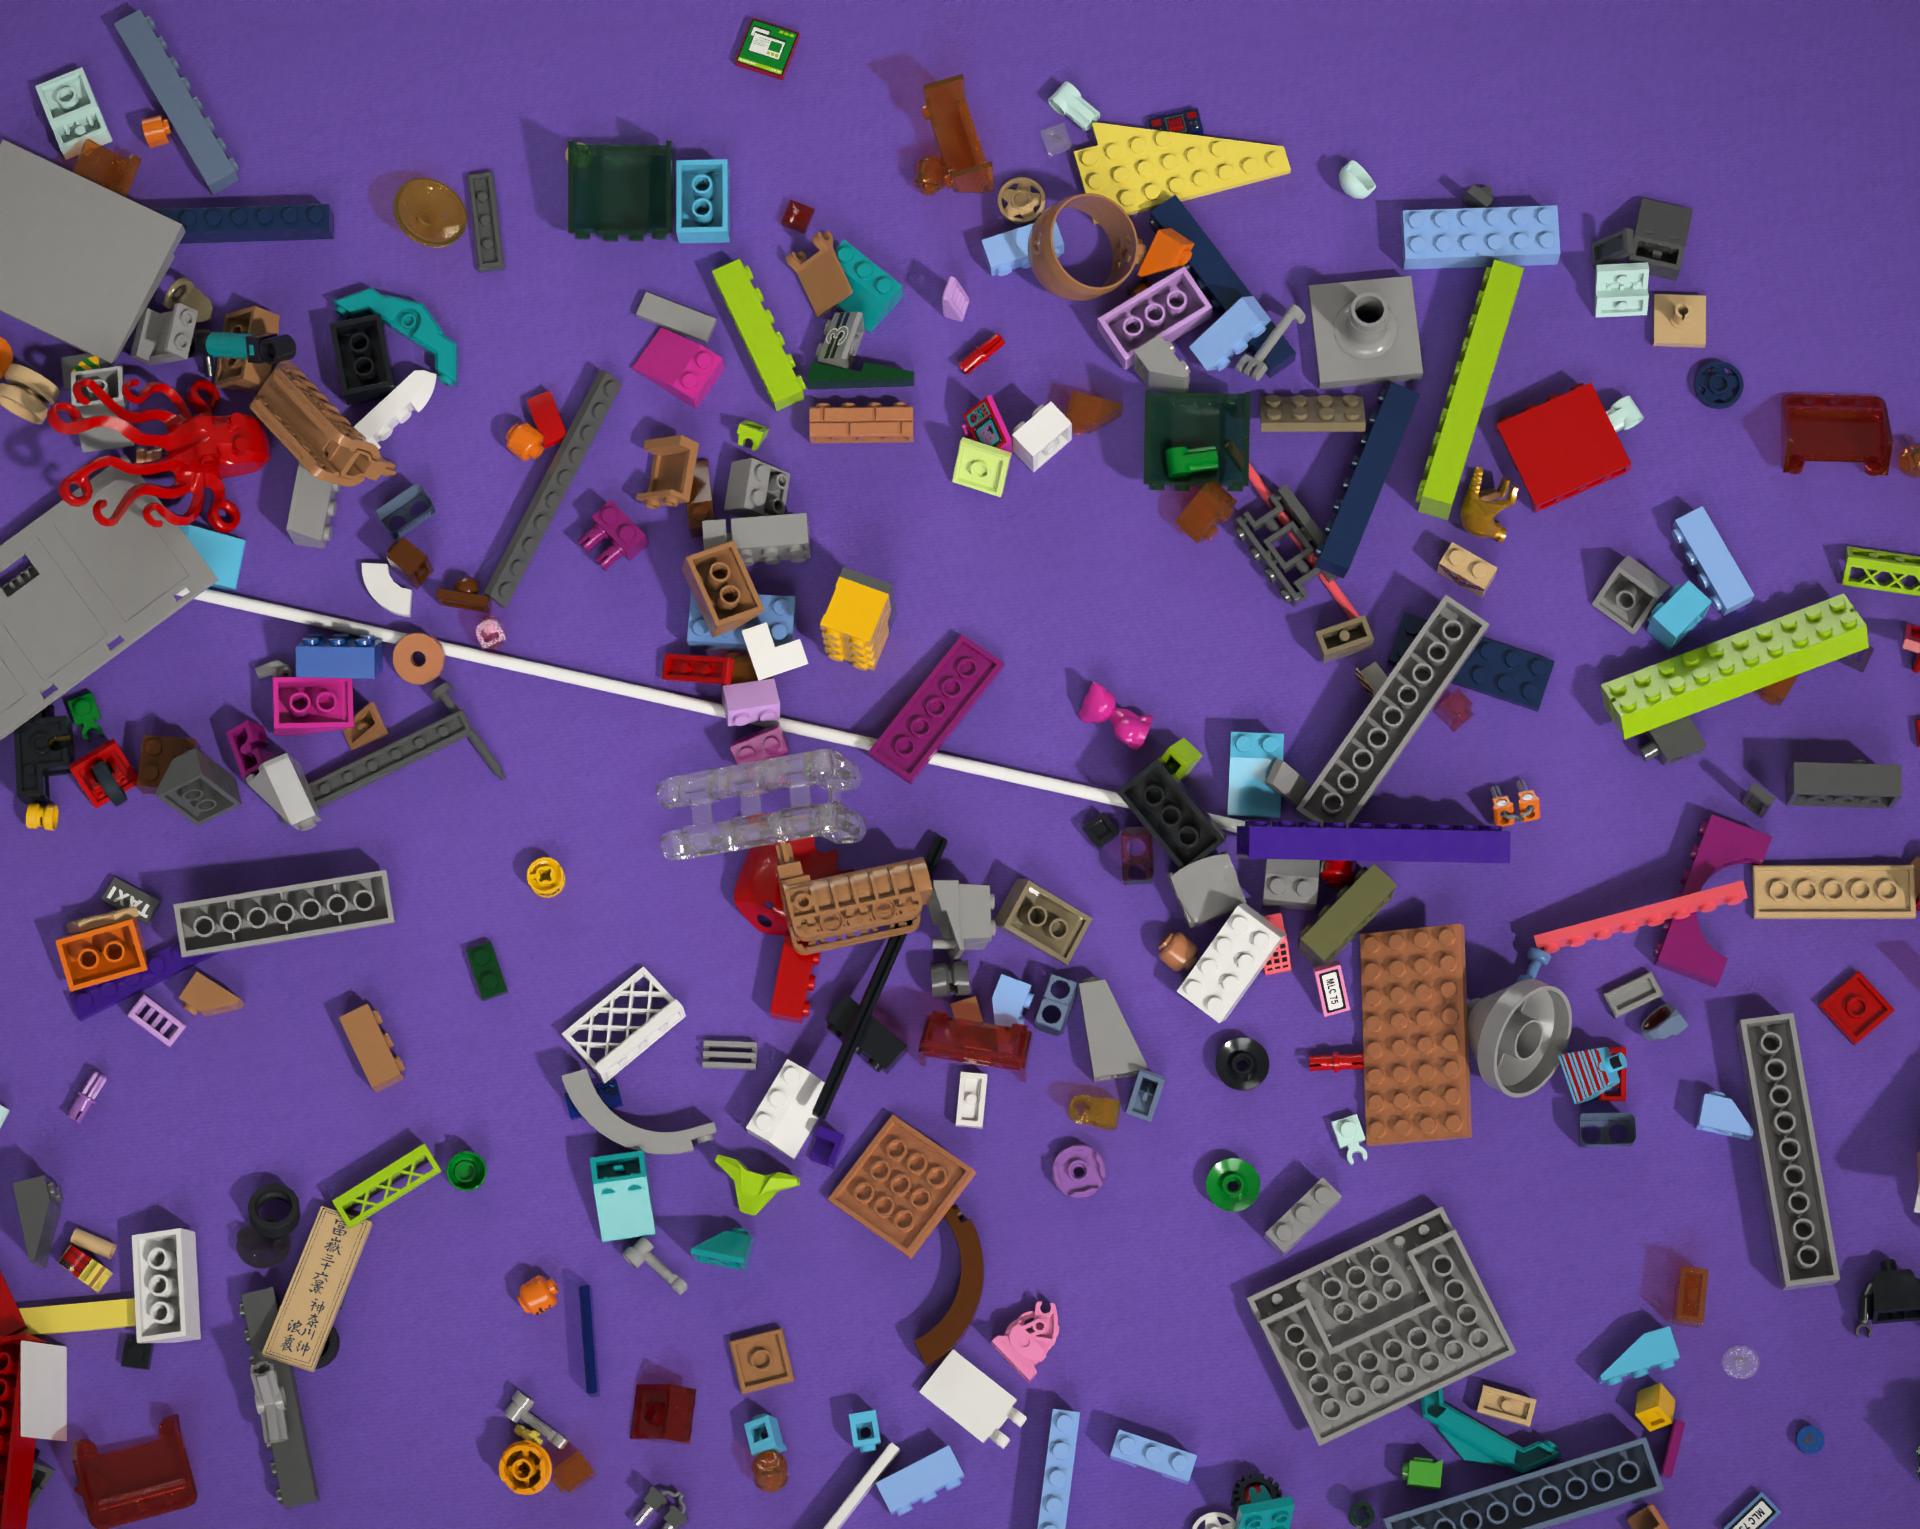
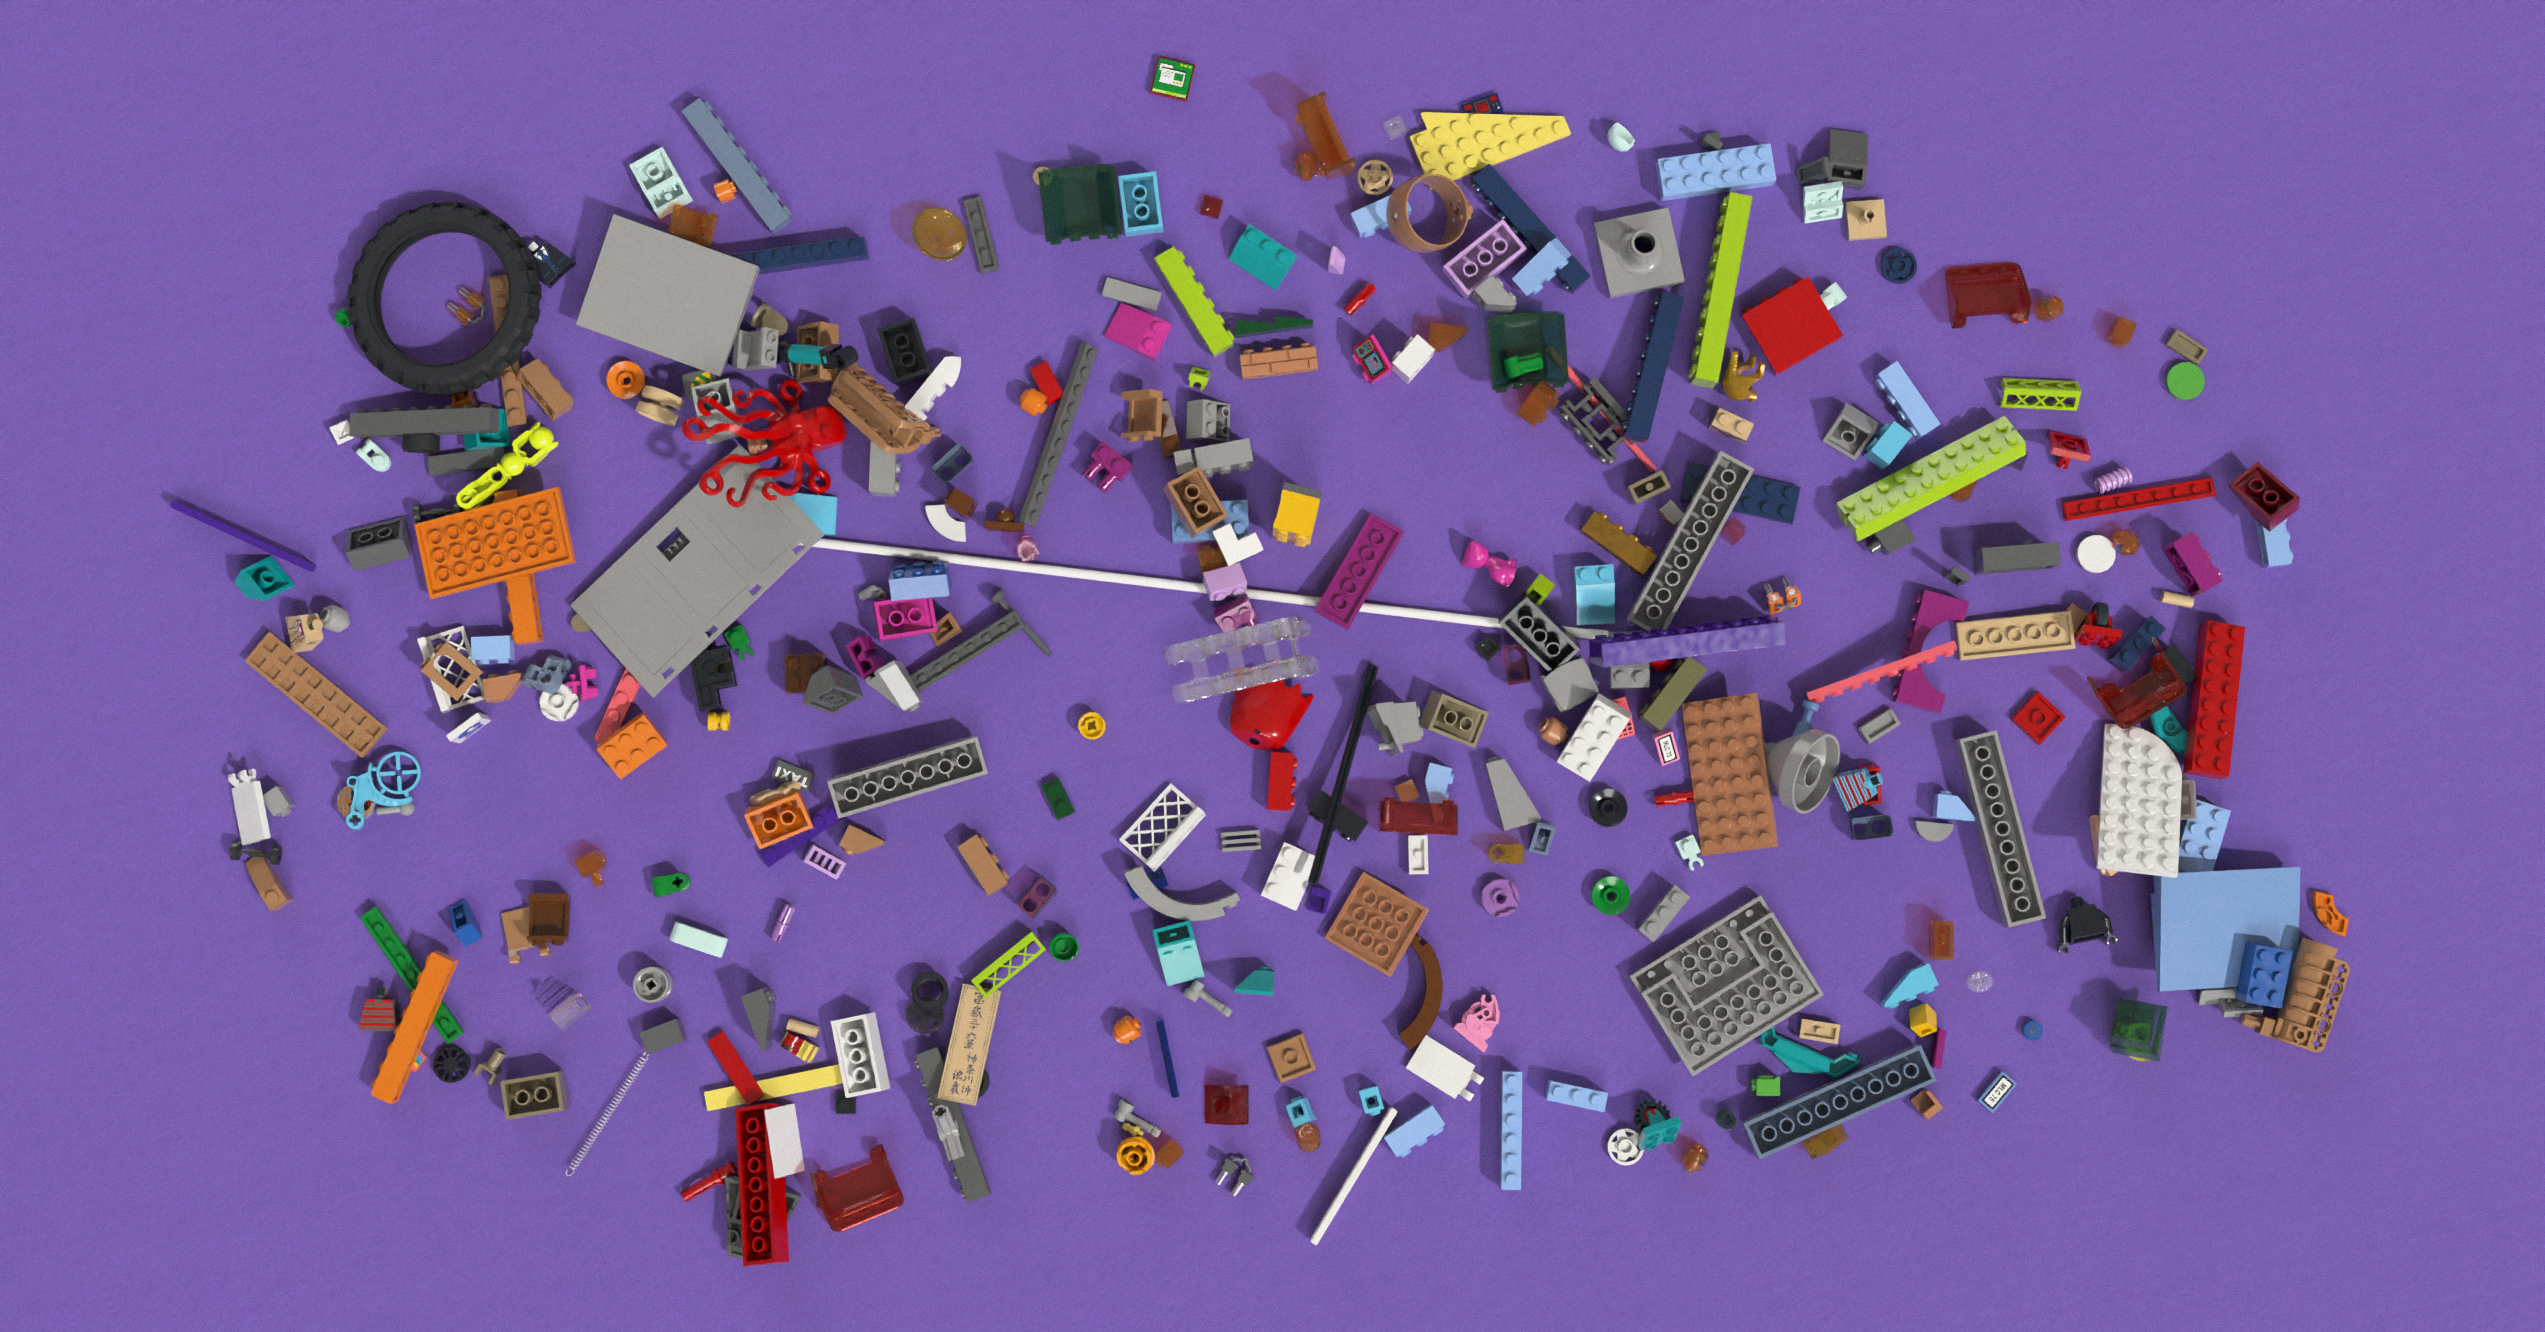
camera: 15 degrees left, 10 degrees up
(105, 774) = (761, 686): red plate -> none
(408, 668) = (973, 583): nougat tile -> none
(409, 320) = (935, 317): teal helmet -> none
(441, 1112) = (1039, 900): none -> clear pink piece
(698, 669) = (1182, 561): red plate -> none
(753, 1188) = (1271, 936): lime piece -> none
(821, 275) = (1235, 252): medium nougat flag -> none
(841, 340) = (1256, 301): light grey slope -> none
(850, 902) = (1316, 723): medium nougat piece -> none
(950, 978) = (1392, 769): dark grey wheel -> none
(981, 467) = (1371, 386): yellowish green tile -> none
(1059, 1027) = (1467, 778): sand blue piece -> none
(1069, 102) = (1401, 98): light aqua piece -> none
(1139, 287) = (1470, 237): clear orange piece -> none
(1166, 253) = (1489, 209): orange slope -> none
(1254, 365) = (1562, 287): light grey hinge -> none
(1287, 782) = (1618, 599): light grey tile -> none
(1295, 709) = (1618, 544): none -> pearl gold brick
(1312, 414) = (1607, 320): dark tan plate -> none
(1663, 1023) = (1903, 745): sand blue rock -> none
(1695, 1147) = (1933, 831): none -> light grey tile

